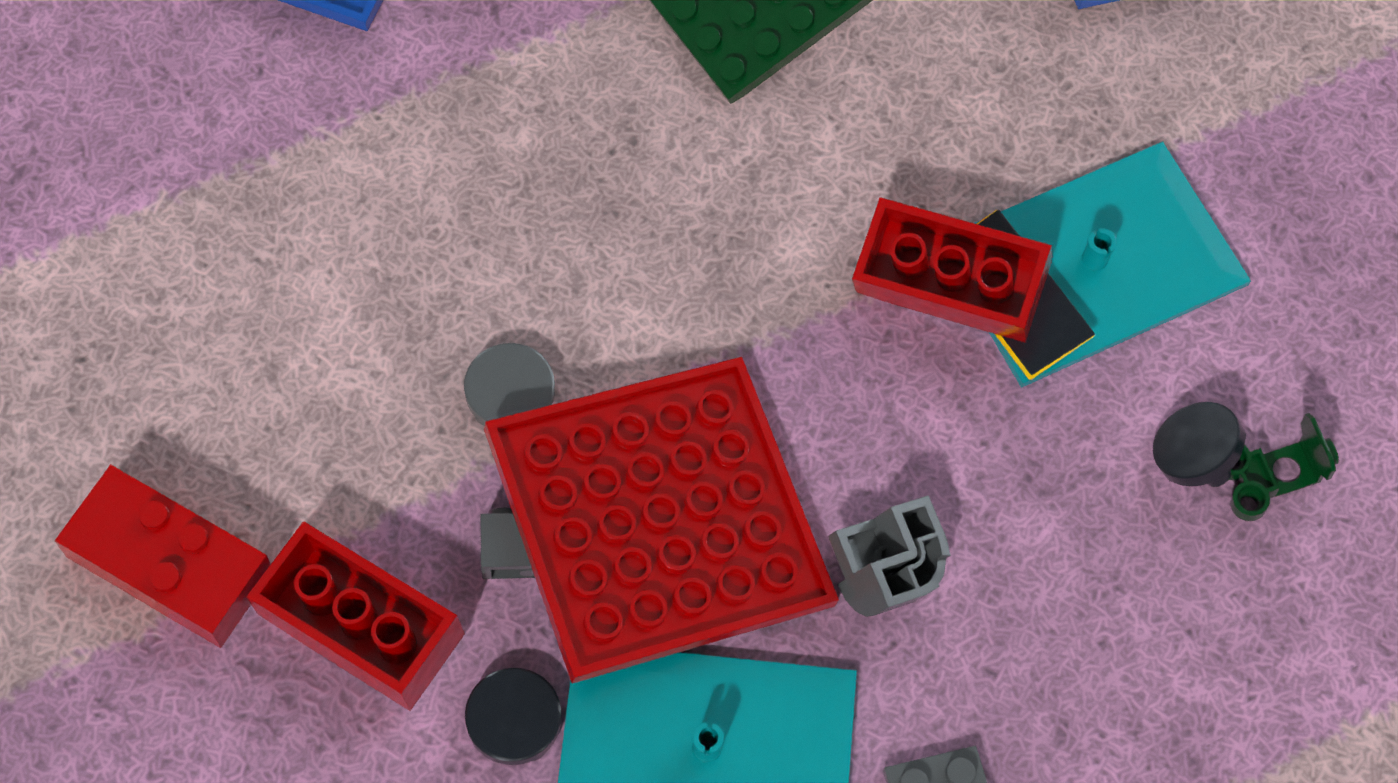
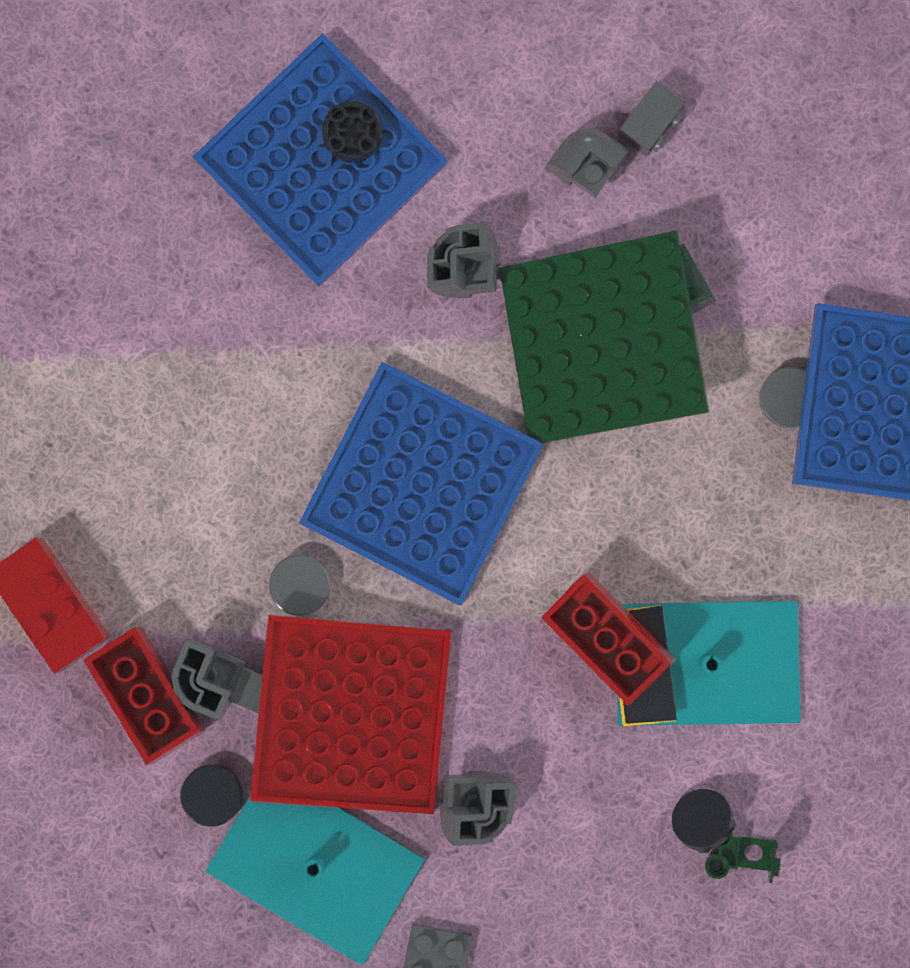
camera: 25 degrees right, 20 degrees up
(433, 548) = (206, 678): none -> dark grey brick
(611, 202) = (421, 483): none -> blue plate

